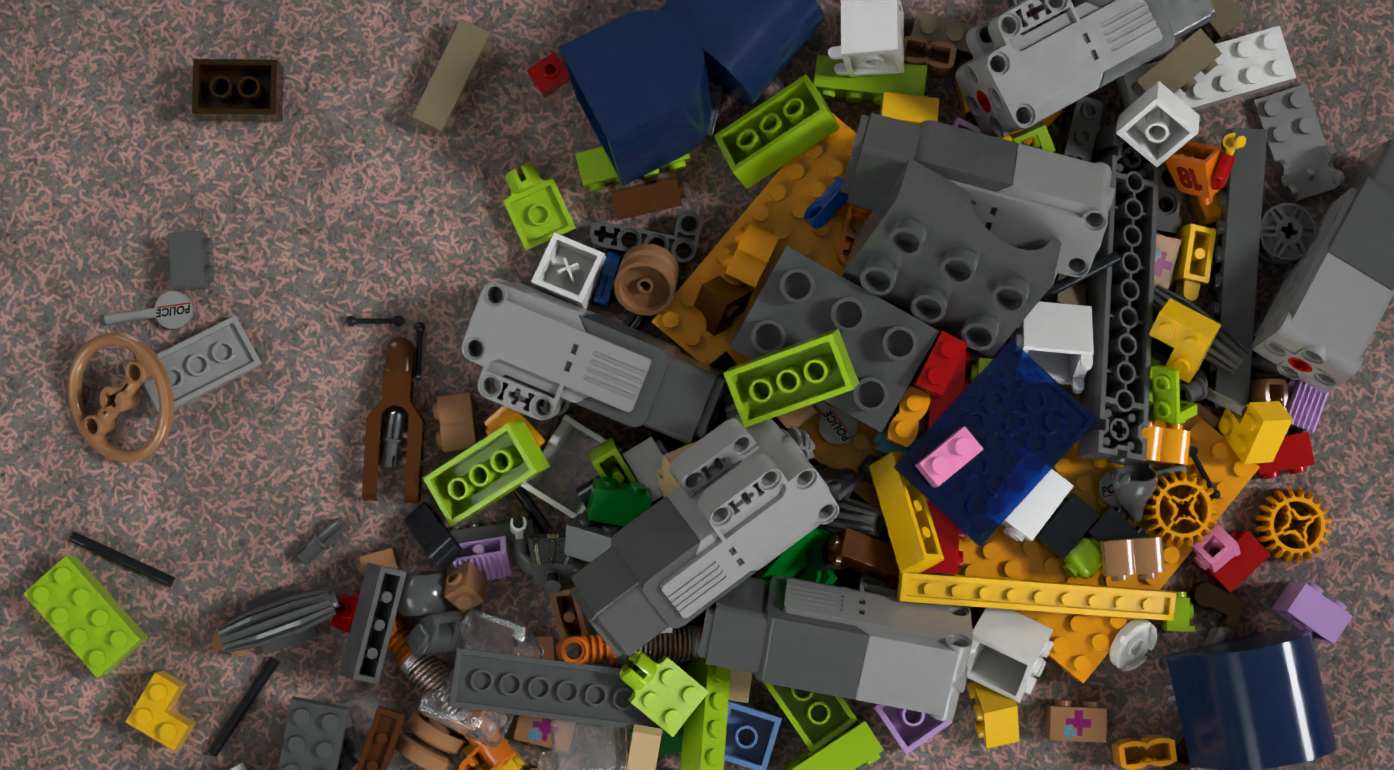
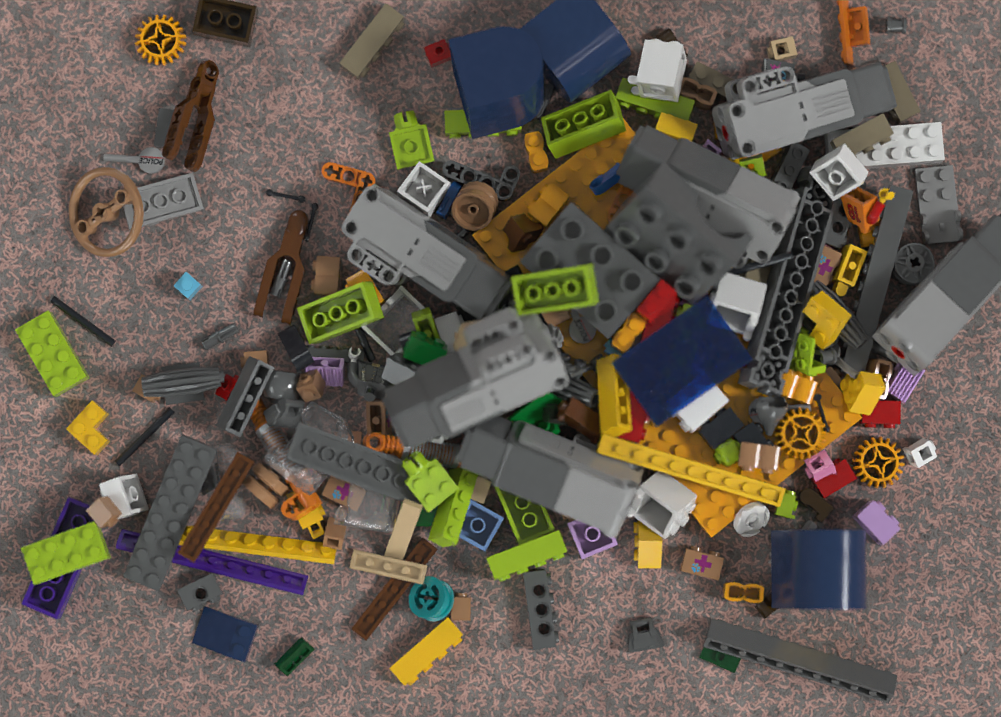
camera: 15 degrees right, 0 degrees up
(141, 140) = (168, 39): none -> light orange gear
(224, 204) = (199, 96): none -> reddish brown piece
(261, 478) = (188, 286): none -> medium azure brick
(471, 280) = (356, 182): none -> orange beam
(647, 197) = (487, 150): reddish brown brick -> none
(713, 179) = (537, 156): none -> light orange brick
(949, 457) = (648, 363): bright pink brick -> none
(1349, 499) = (919, 459): none -> white brick

